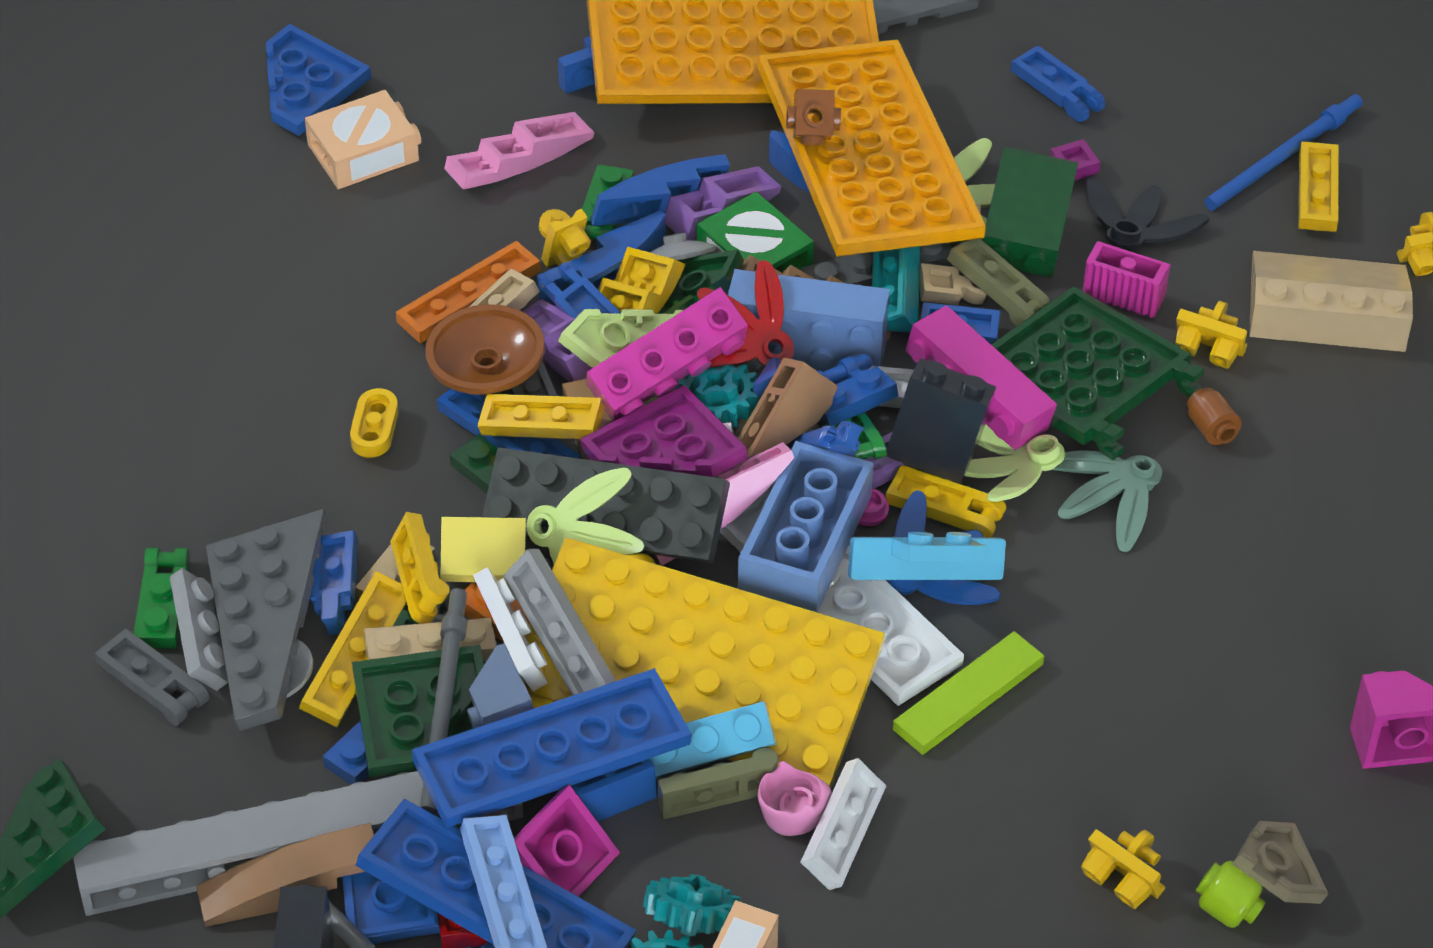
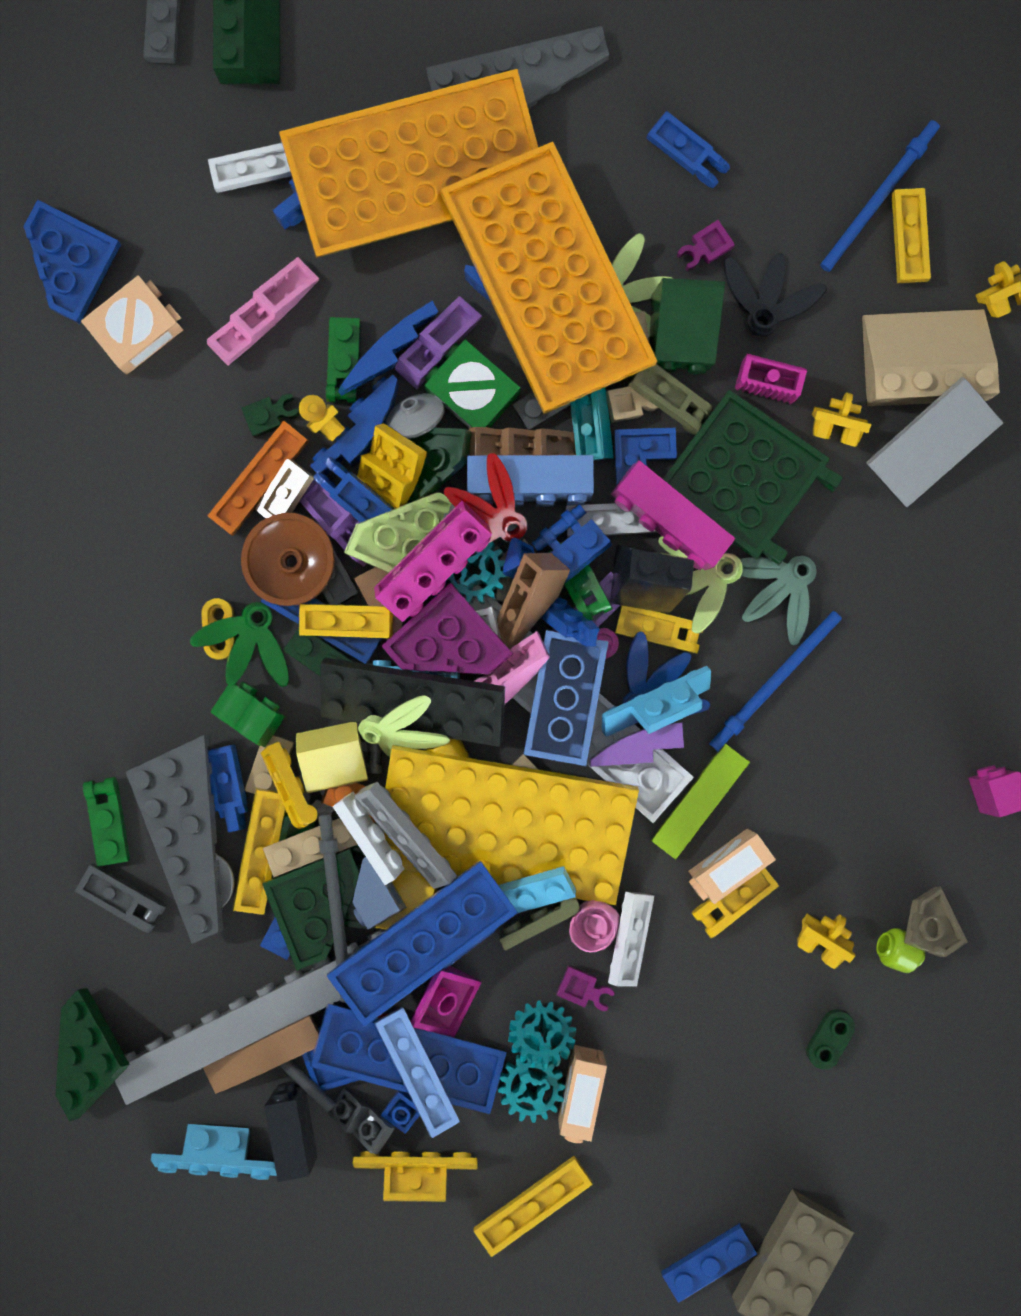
camera: 10 degrees left, 40 degrees up
(199, 629) = (140, 854): light grey plate -> none
(382, 499) = (248, 713): none -> green brick
(410, 431) = (244, 645): none -> green plant
(491, 238) = (264, 415): none -> dark green plate
(541, 32) = (249, 167): none -> white plate
(760, 871) = (579, 987): none -> magenta plate
(818, 103) = (503, 276): dark orange brick -> none
(892, 596) = (639, 746): none -> medium lavender slope
(997, 745) = (730, 866): none -> brick
(1000, 803) = (735, 903): none -> yellow plate
(1032, 614) = (734, 724): none -> blue bar
(1213, 416) = (850, 506): dark orange brick -> none
(1326, 359) = (934, 442): none -> light grey tile

